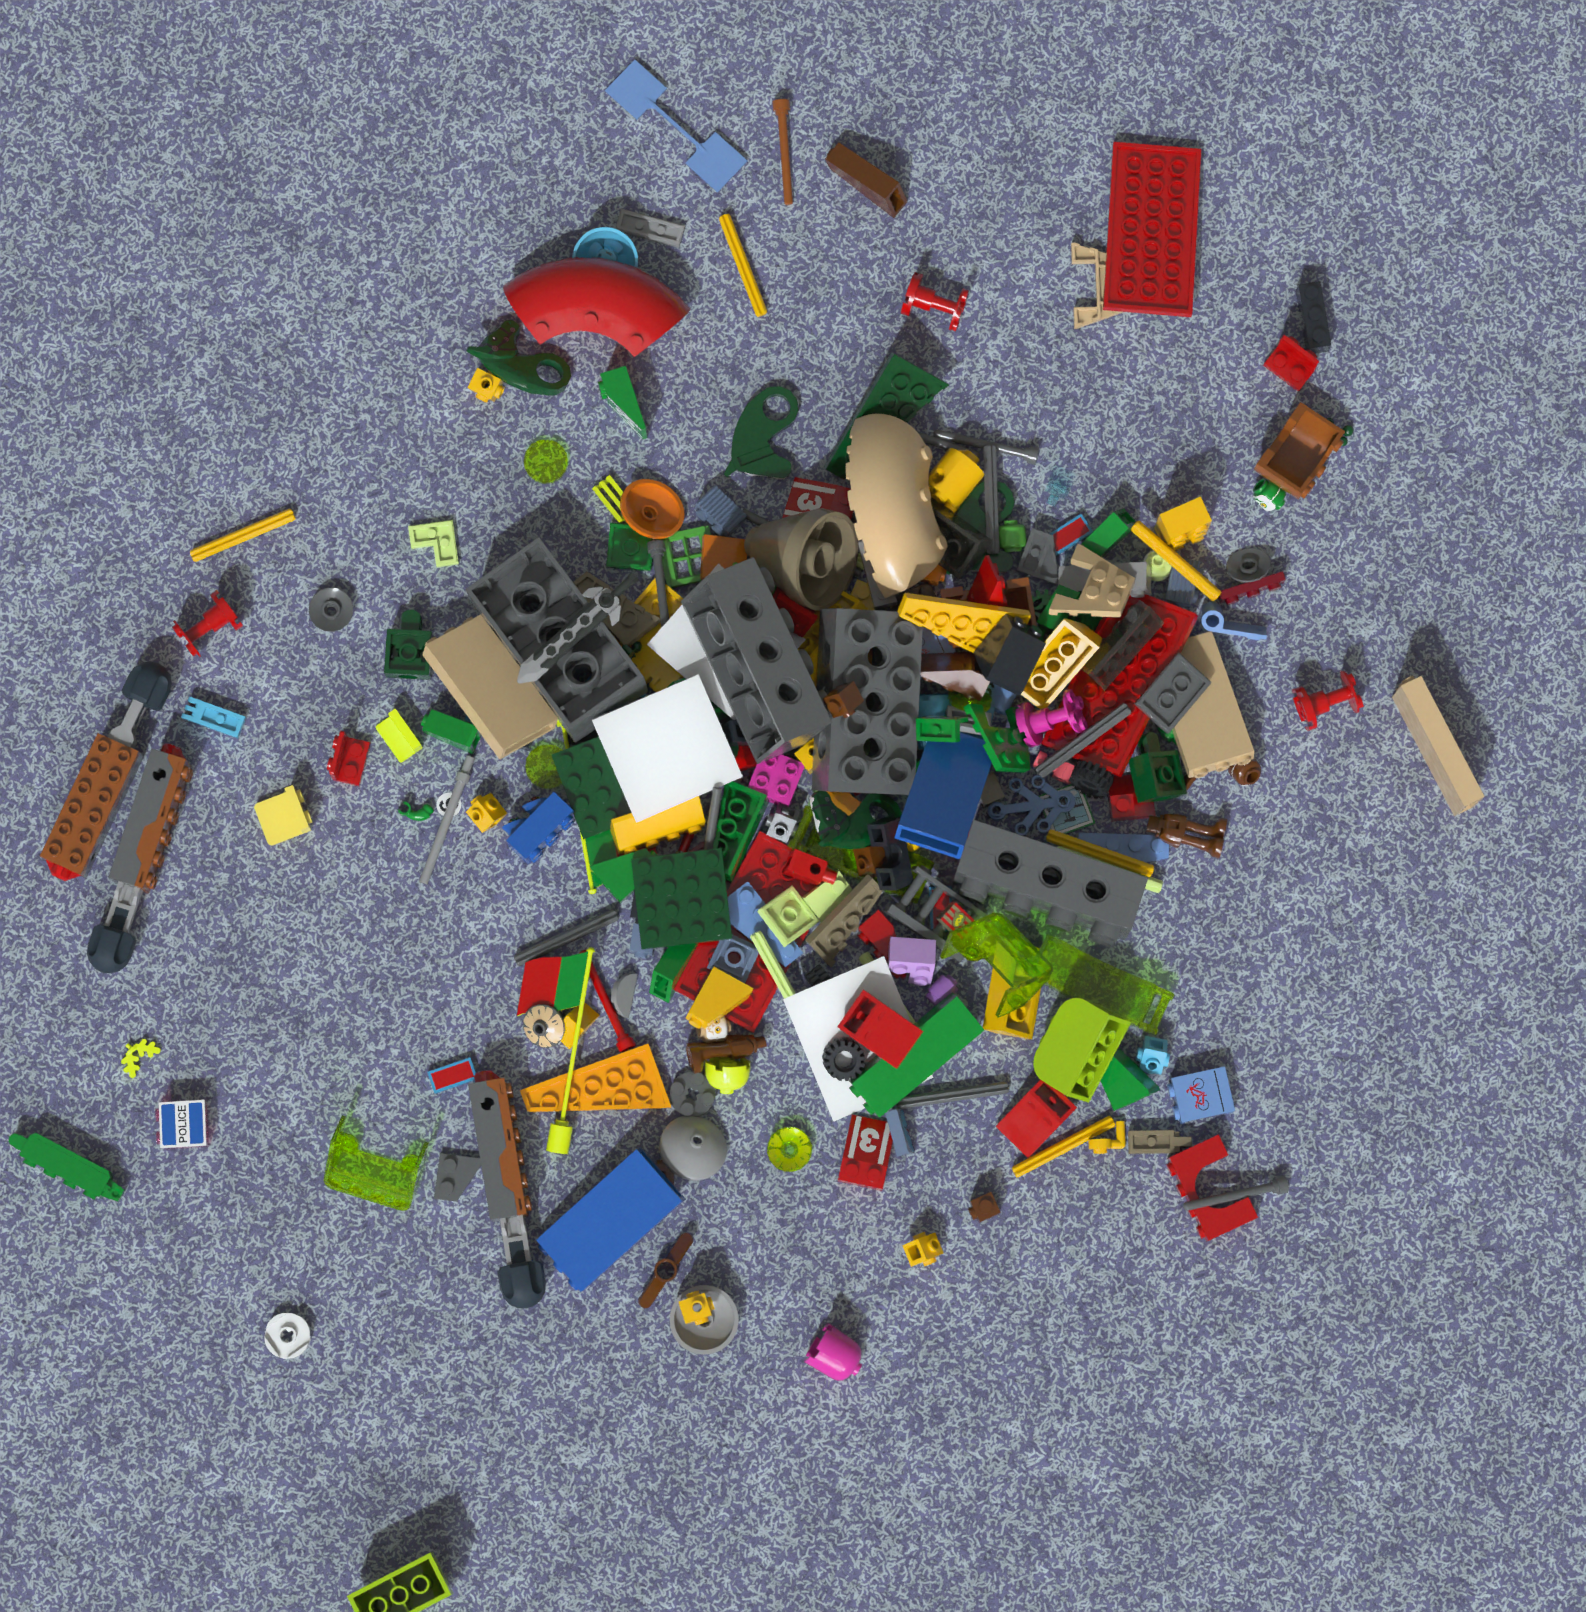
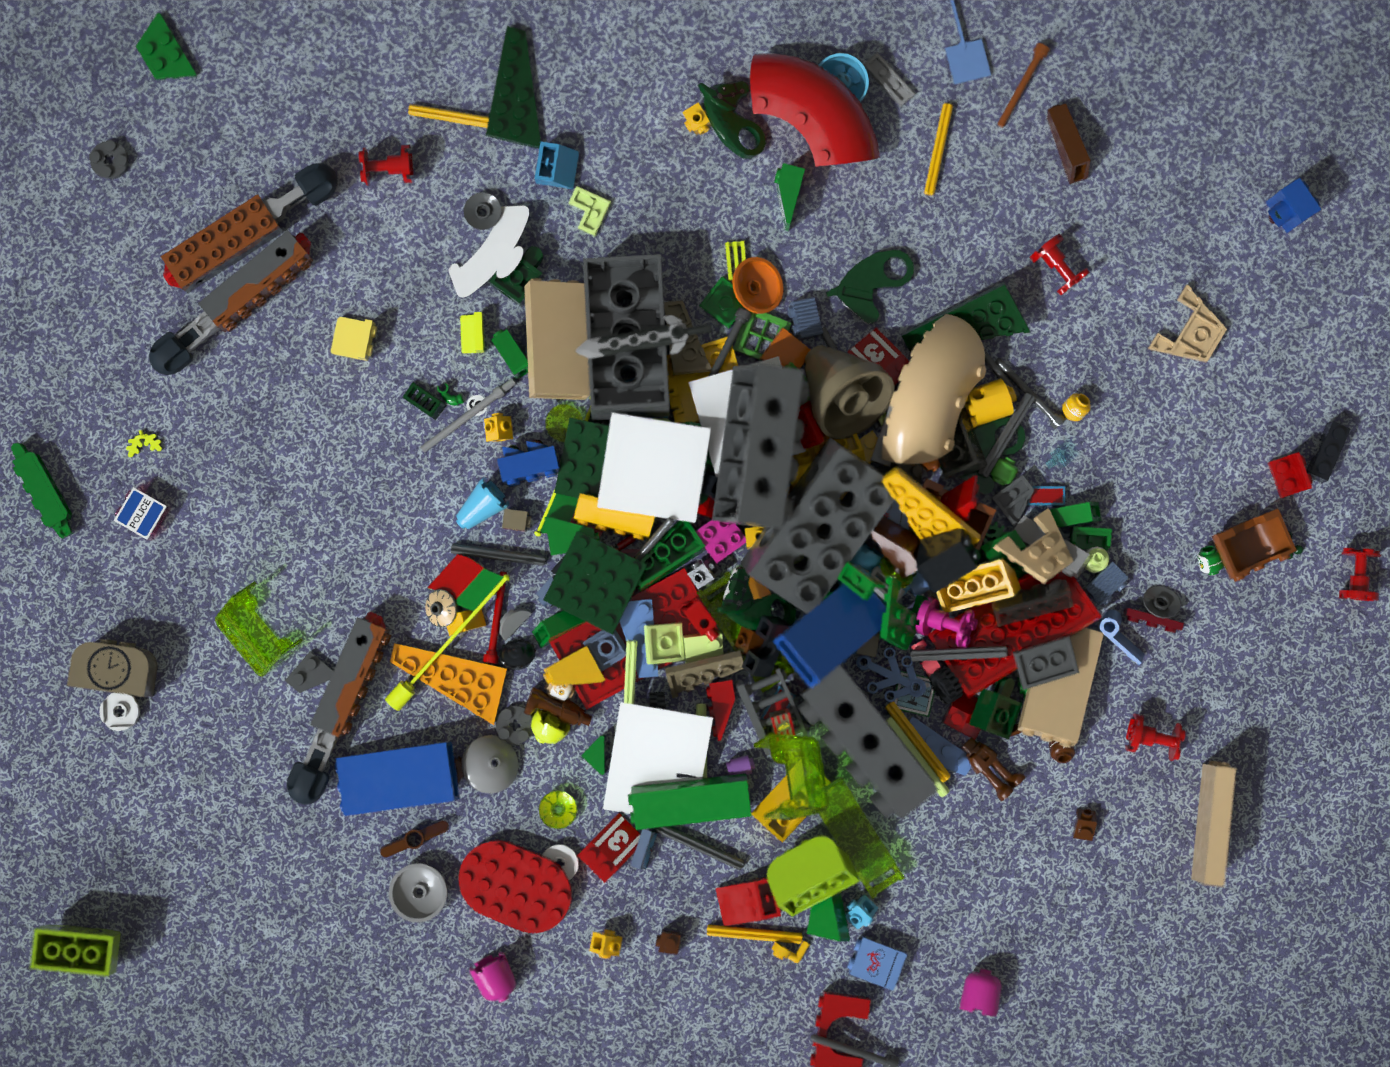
camera: 30 degrees right, 5 degrees up
(214, 717) = (351, 236): medium azure hinge -> none
(254, 1294) = (113, 668): none -> dark tan brick
(293, 485) = (513, 100): none -> dark green wing
(348, 759) = (425, 326): red bracket -> none
(371, 643) = (495, 253): none -> white sticker
(376, 518) = (556, 165): none -> dark azure slope
(412, 833) = (436, 410): none -> dark green slope
(452, 1075) = (354, 601): red tile -> none
(518, 898) = (481, 504): none -> medium azure cone
(545, 461) = (706, 207): clear neon green tile -> none
(562, 891) = (516, 520): none -> dark tan brick
(636, 647) = (674, 380): dark green piece -> none
(649, 1022) = (517, 654): none -> black piece
(687, 1308) = (408, 883): yellow brick -> none
(792, 1072) = (596, 755): none -> green slope
(796, 1252) = (515, 886): none -> red plate
(830, 1190) = (567, 856): none -> white plate
(843, 700) = (801, 517): reddish brown brick -> none
(843, 1072) = (642, 762): black tyre -> none
(880, 1029) = (675, 769): red slope -> none
(912, 957) = (734, 732): lavender brick -> none
(1041, 429) = (1076, 407): none -> yellow head
(1123, 102) = (1292, 205): none -> blue piece
(1133, 549) = (1090, 537): none -> green hinge
(1152, 229) = (1252, 312): red plate -> none
(1156, 1142) = (822, 974): dark tan hinge -> none
(1175, 560) = (1111, 566): yellow axle -> none
(1183, 524) = (1134, 543): yellow brick -> none
(1316, 829) = (1085, 824): none -> reddish brown bracket
(1322, 1057) = (981, 992): none -> dark pink cylinder
(1426, 423) = (1360, 582): none -> red piece

